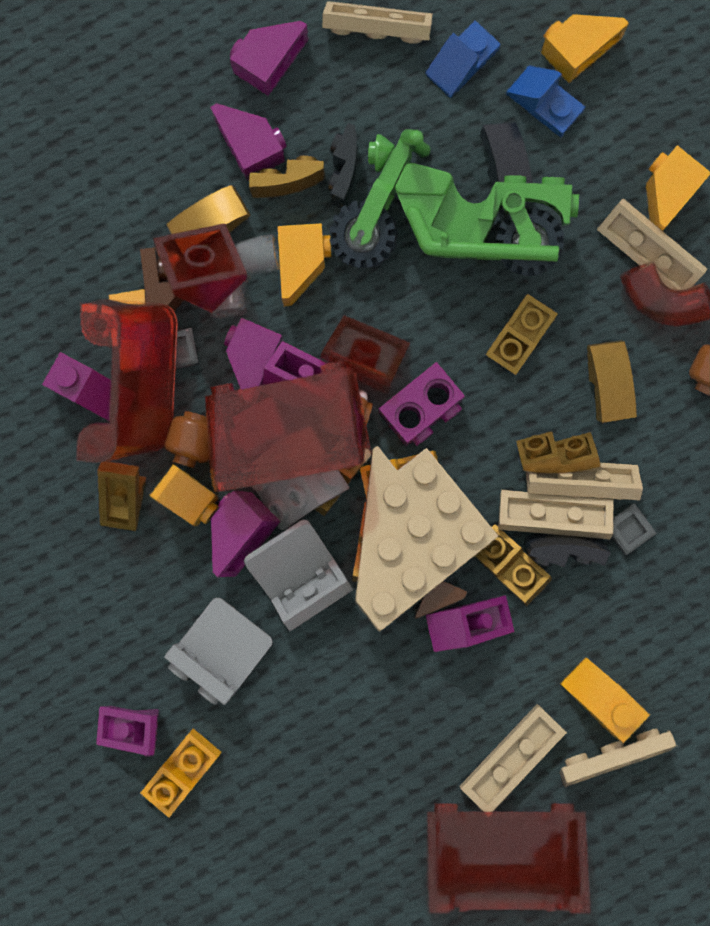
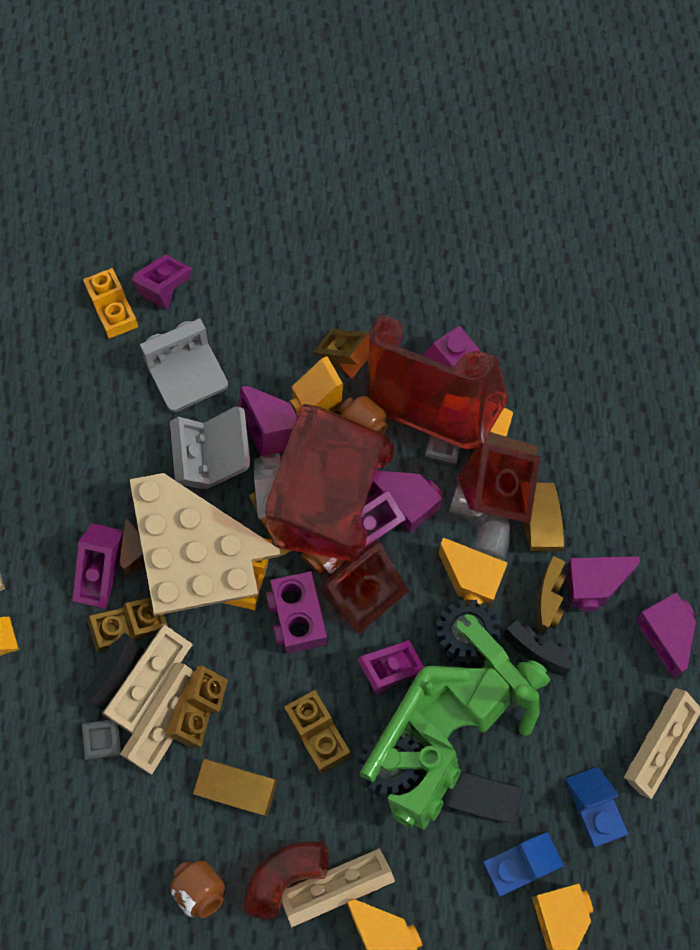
camera: 110 degrees right, 15 degrees down
(431, 292) = (390, 666): none -> magenta slope

